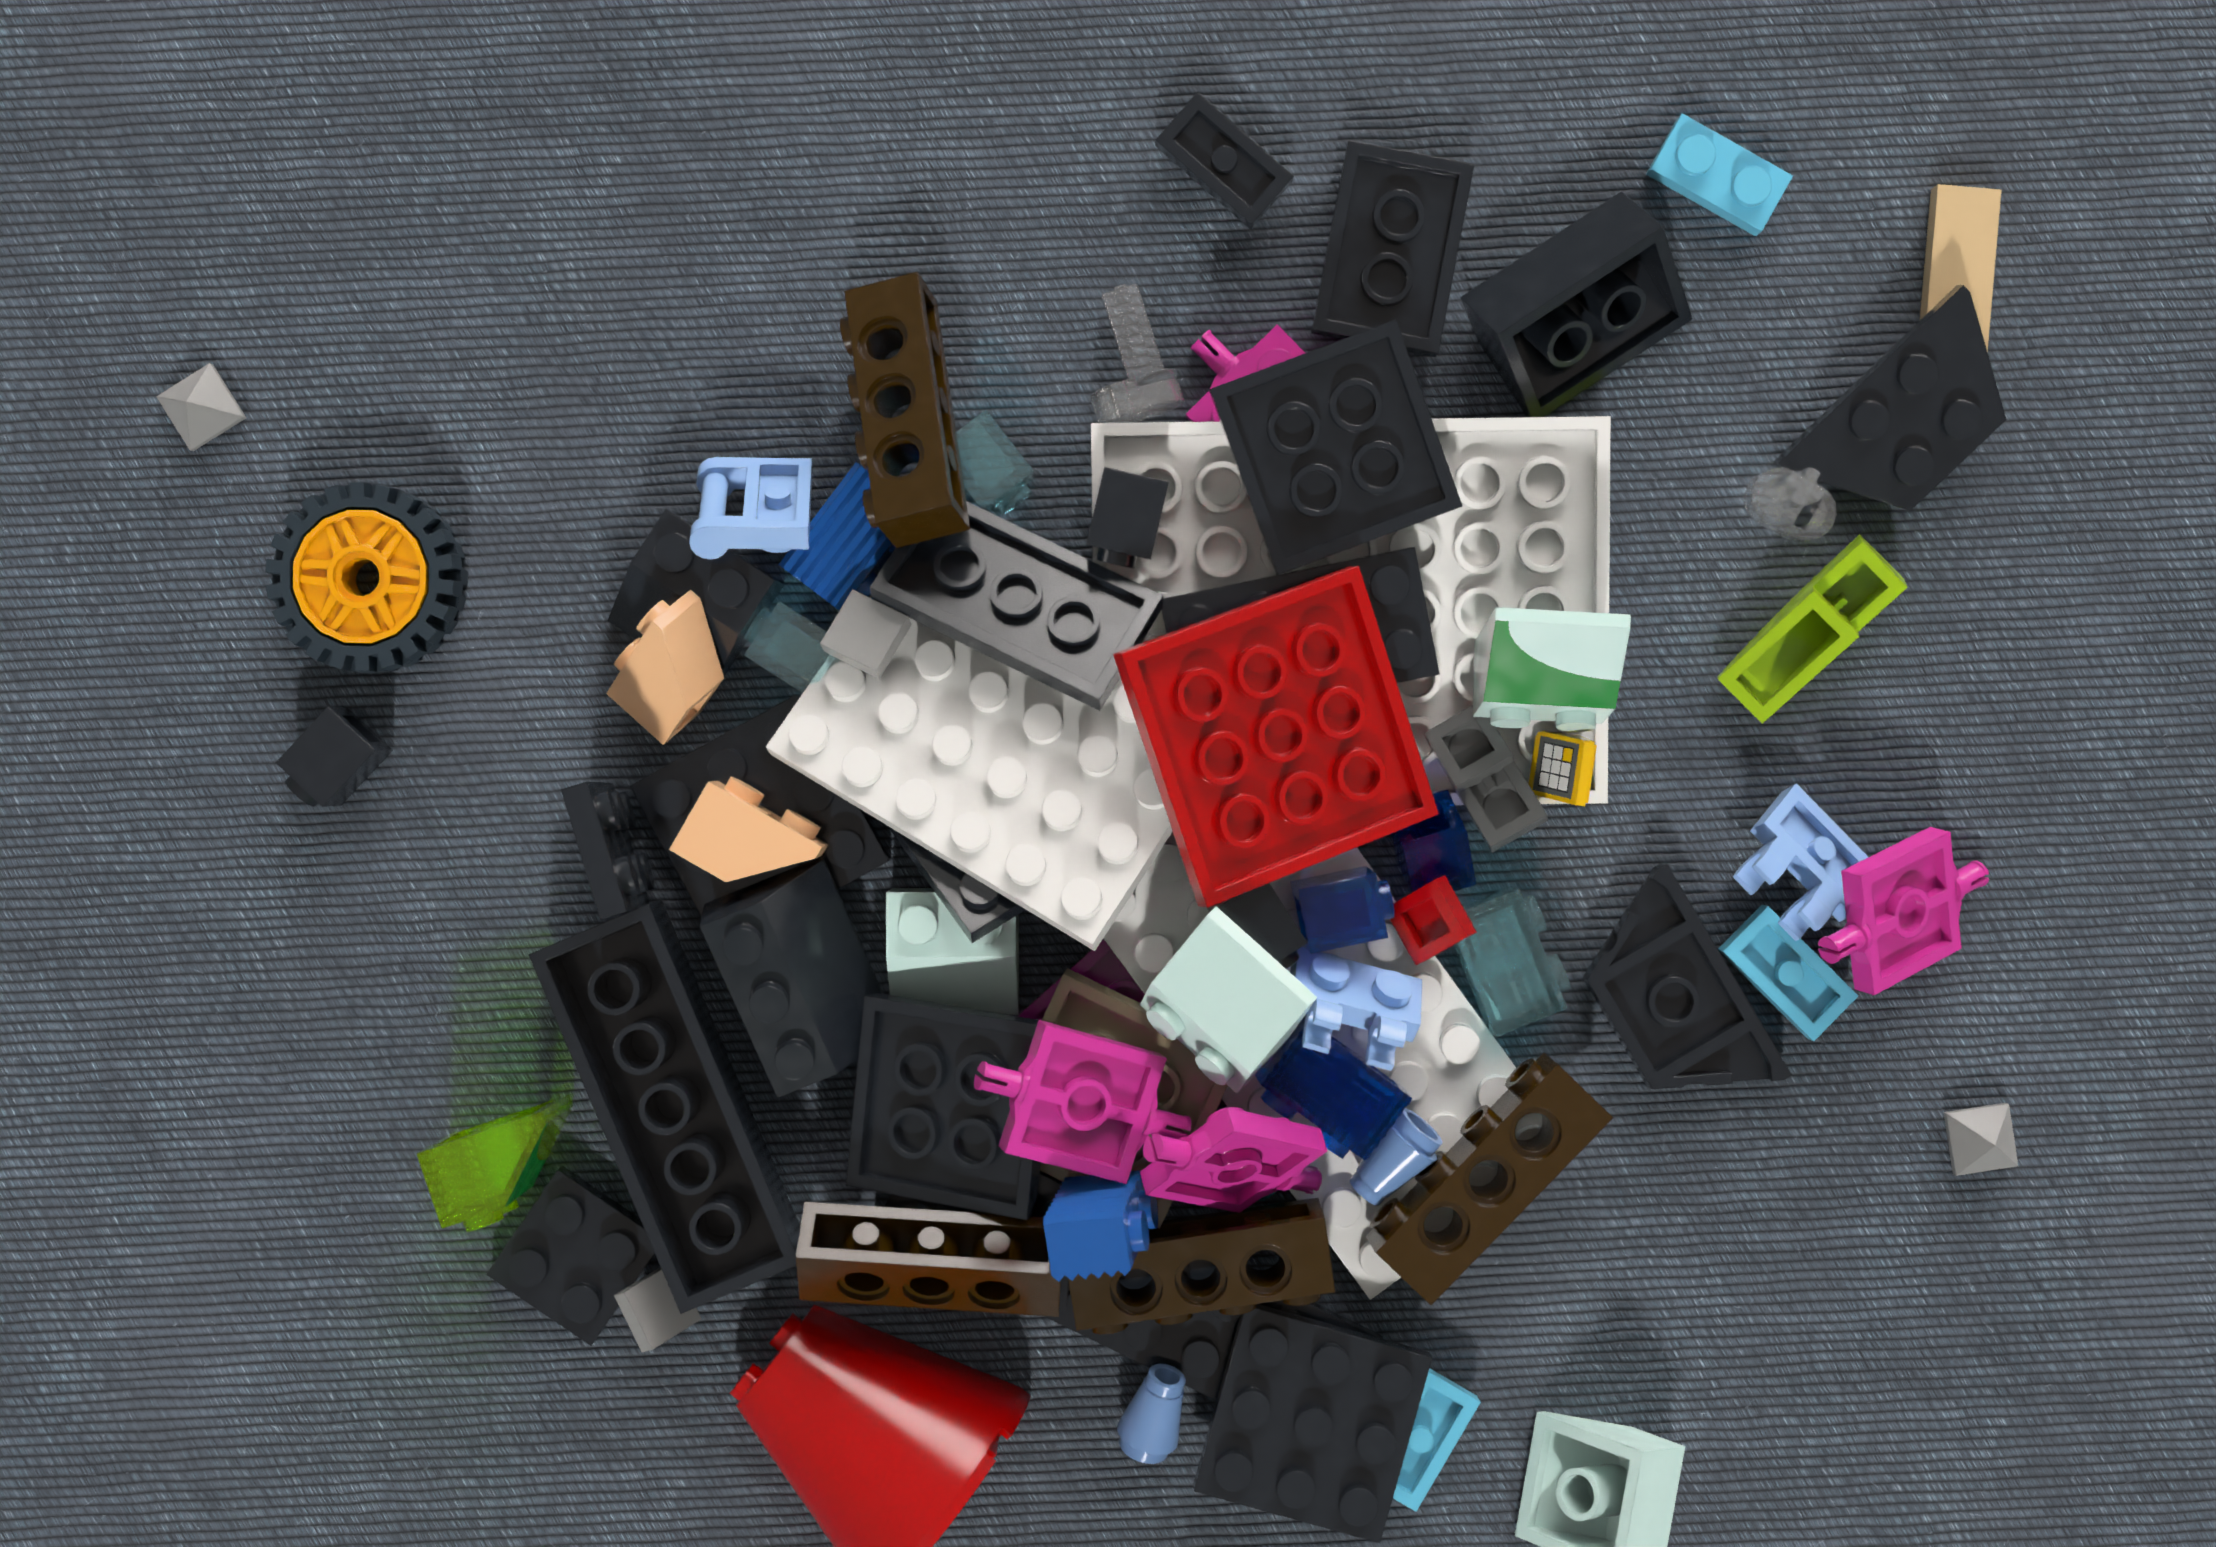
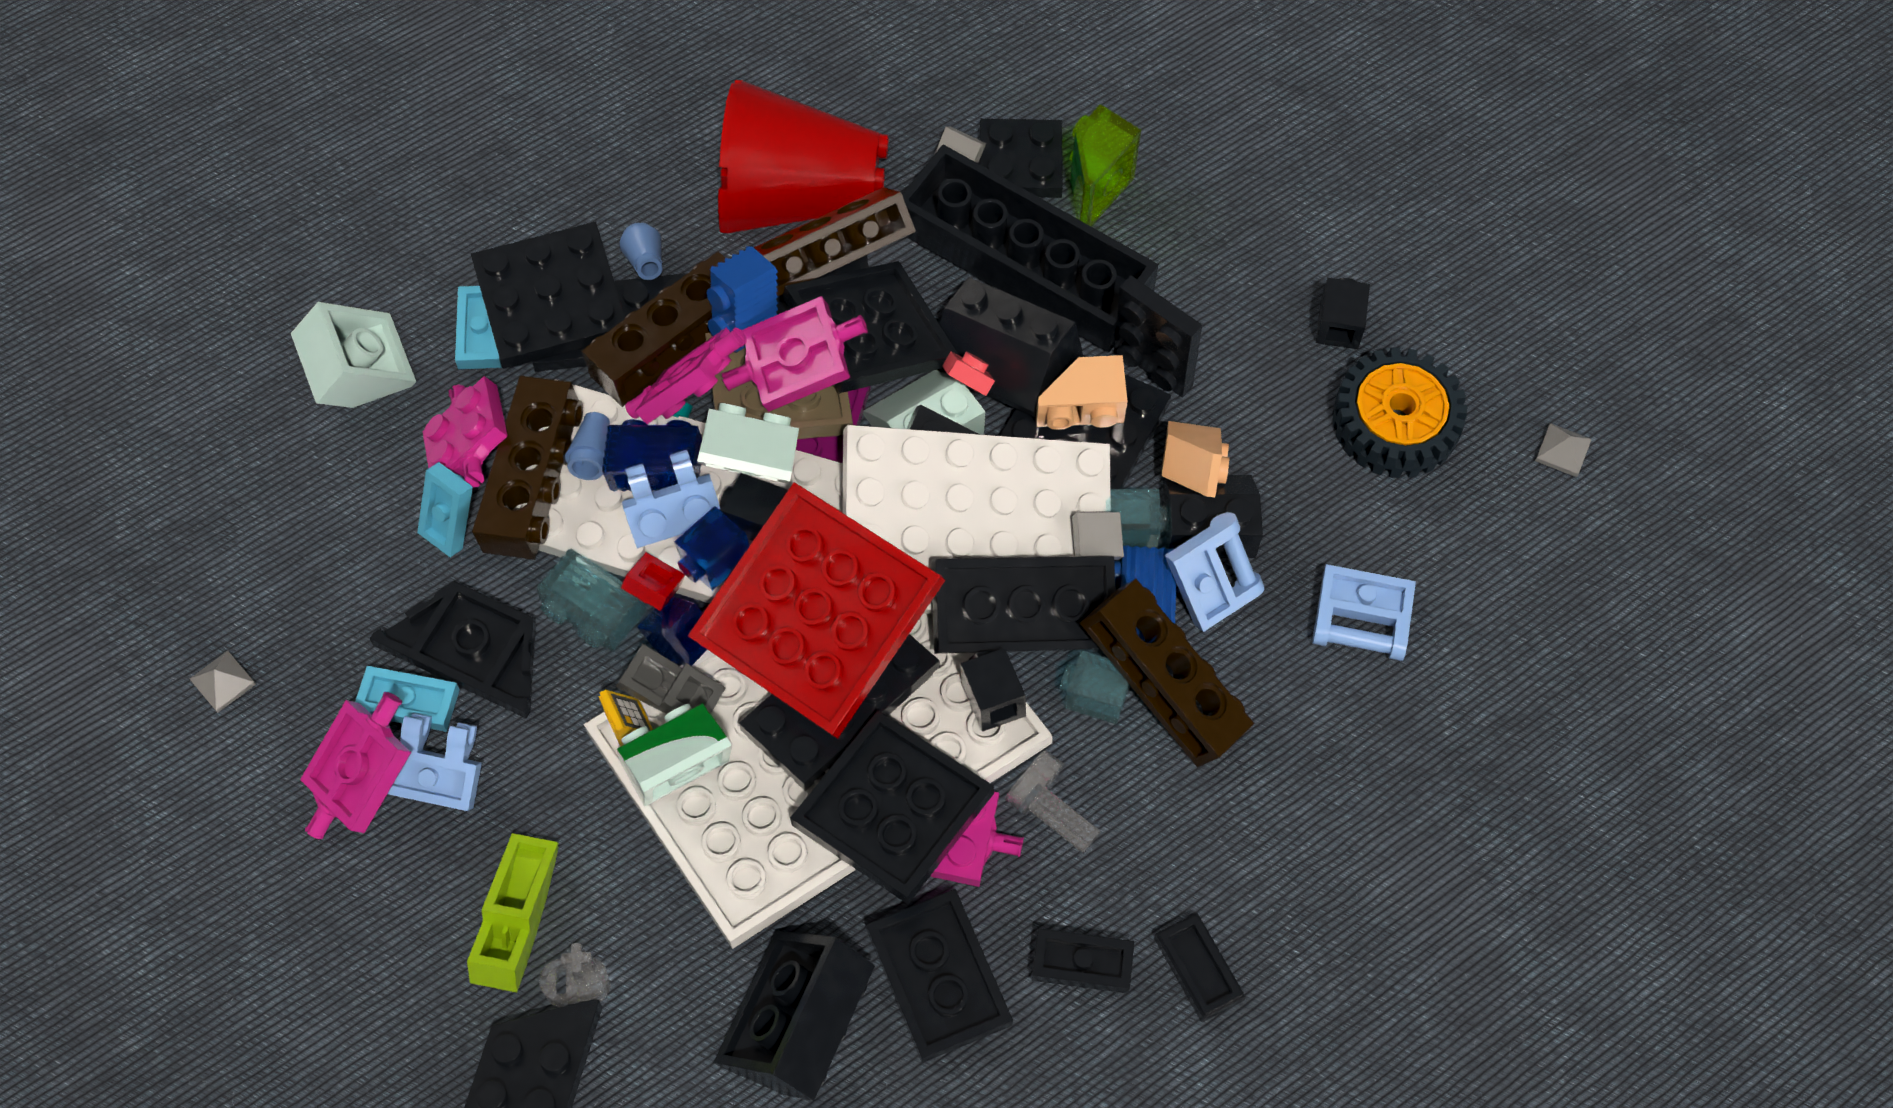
camera: 145 degrees right, 25 degrees down
(591, 370) = (1368, 599): none -> light blue plate
(873, 955) = (969, 371): none -> coral plate
(1098, 75) = (1199, 967): none -> black tile
(1535, 1275) = (466, 430): none -> dark pink plate
(1615, 1187) = (444, 509): none -> medium azure plate

